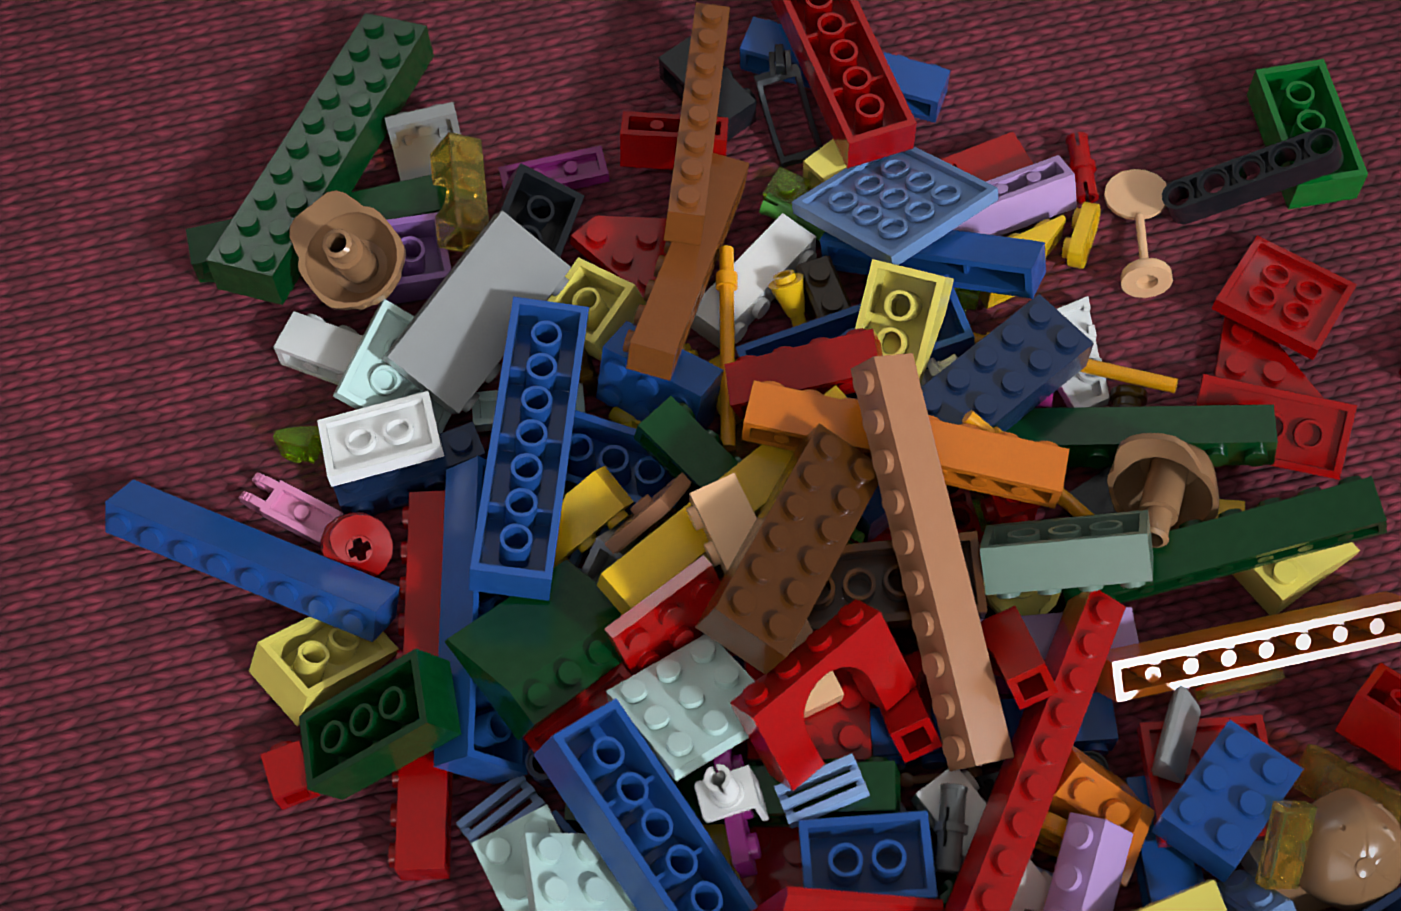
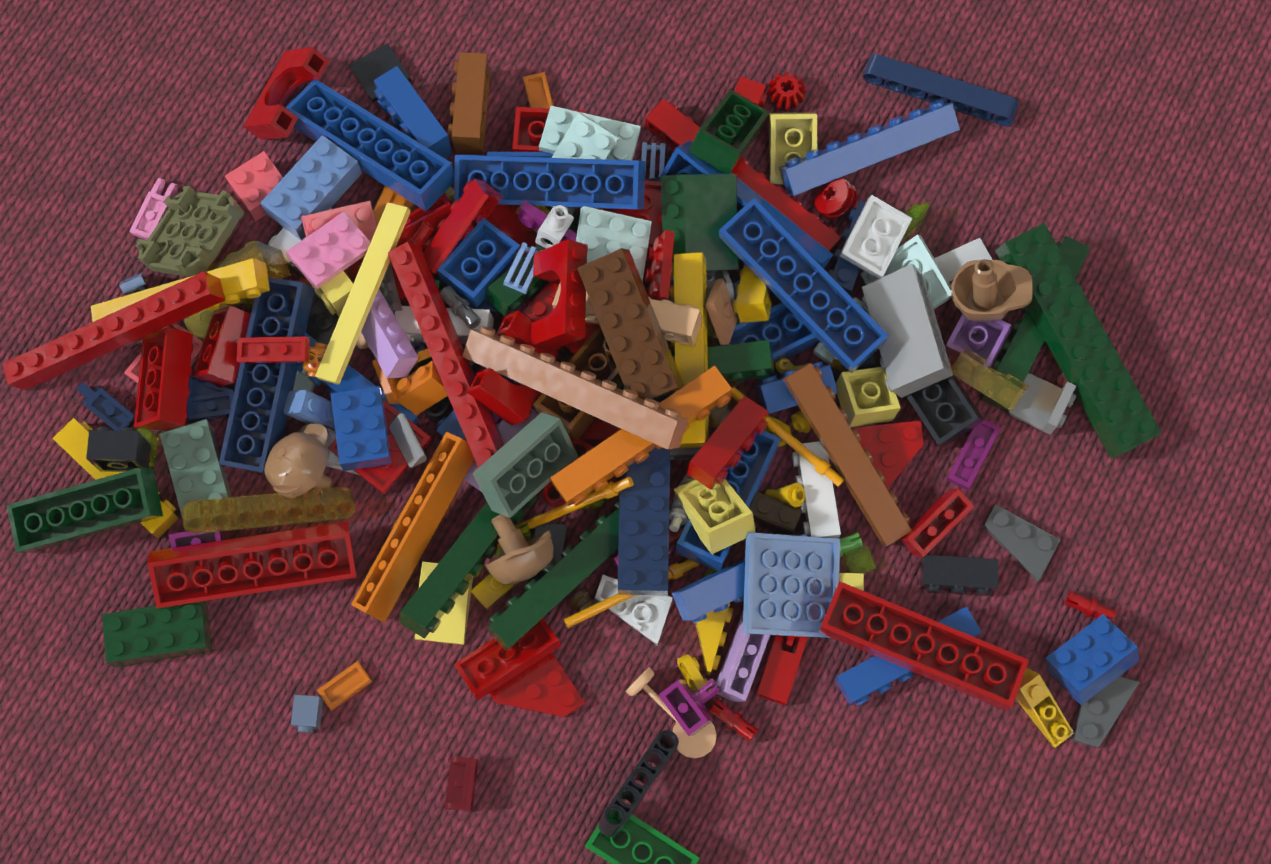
camera: 130 degrees right, 10 degrees up
(88, 556) = (934, 87): none -> dark blue beam
(233, 722) = (794, 89): none -> red gear
(290, 508) = (887, 187): bright pink hinge -> none
(608, 67) = (1023, 540): none -> dark grey wing
(697, 125) = (927, 525): dark orange brick -> none
(778, 73) = (928, 603): black sword -> none
(1123, 201) = (689, 705): none -> magenta brick
(1284, 297) = (565, 738): red plate -> none
(1285, 845) = (320, 430): clear yellow plate -> none

